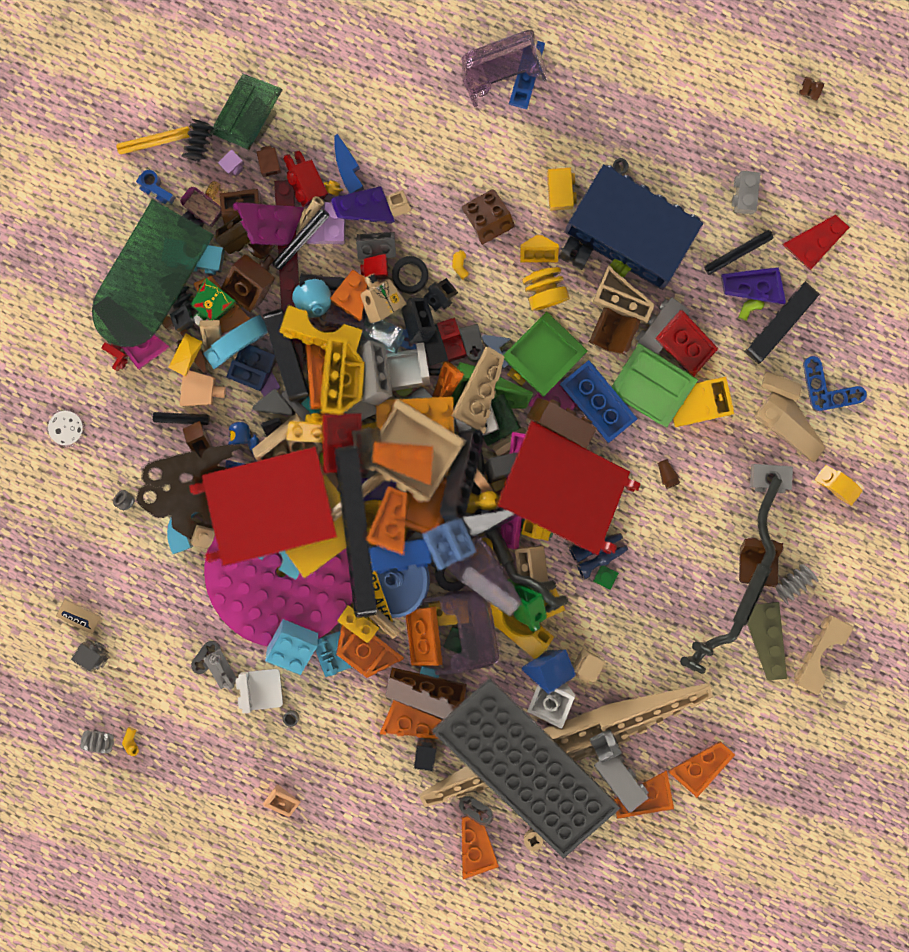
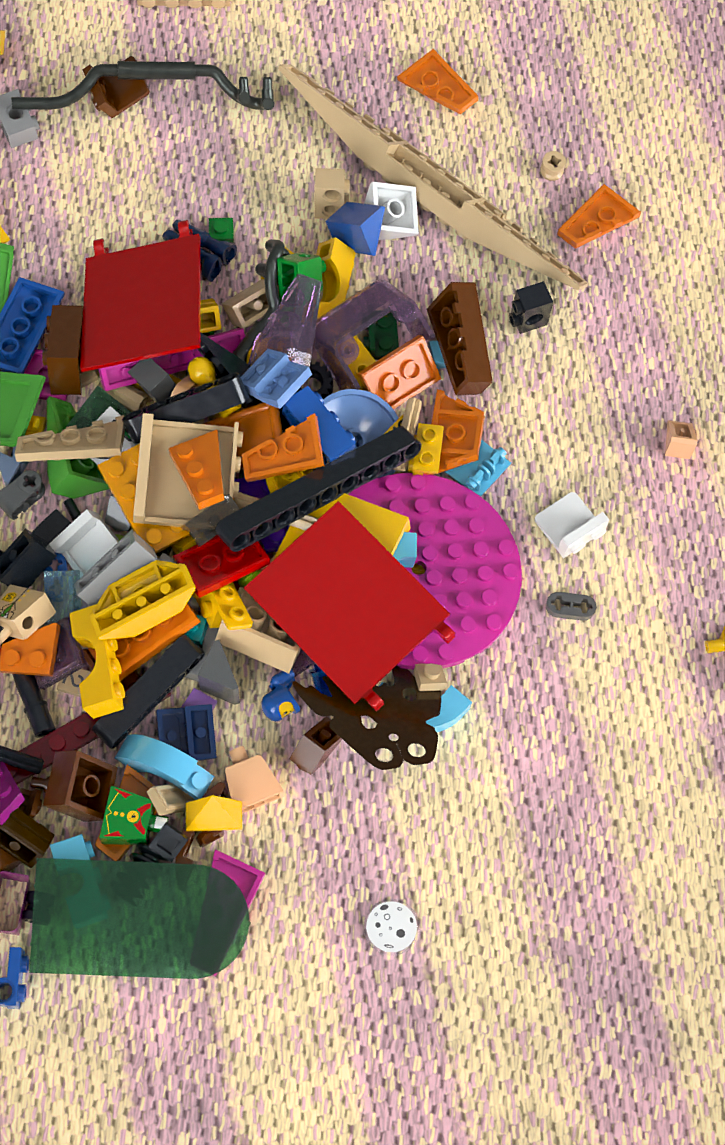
camera: 125 degrees left, 20 degrees down
(78, 616) = (615, 781): tan slope -> none
(90, 655) = (652, 732): dark grey brick -> none
(121, 357) = (257, 915): red bracket -> none
(123, 500) = (441, 803): dark grey tile -> none
(180, 418) = (299, 789): black axle -> none
(220, 669) = (575, 577): light grey hinge -> none
(271, 425) = (247, 671): black slope -> none
(288, 720) = (586, 474): dark grey hinge -> none
(291, 647) = (498, 506): medium azure brick -> none
(312, 297) = (60, 696): medium azure cylinder -> none
(409, 721) = (504, 349): orange wing -> none
(447, 380) = (82, 492): orange wing -> none
(452, 339) = (28, 519): red slope -> none
(478, 807) = (553, 231): dark grey beam -> none
(526, 768) = (479, 196): dark grey plate -> none
(605, 745) = (407, 135): dark grey panel -> none
(622, 782) = (435, 107): light grey brick -> none
(668, 474) = (68, 219): reddish brown cone -> none
(702, 768) = (373, 44): orange wing -> none
(768, 639) = (200, 43): olive wing -> none
(795, 582) = (118, 45): light grey piece -> none

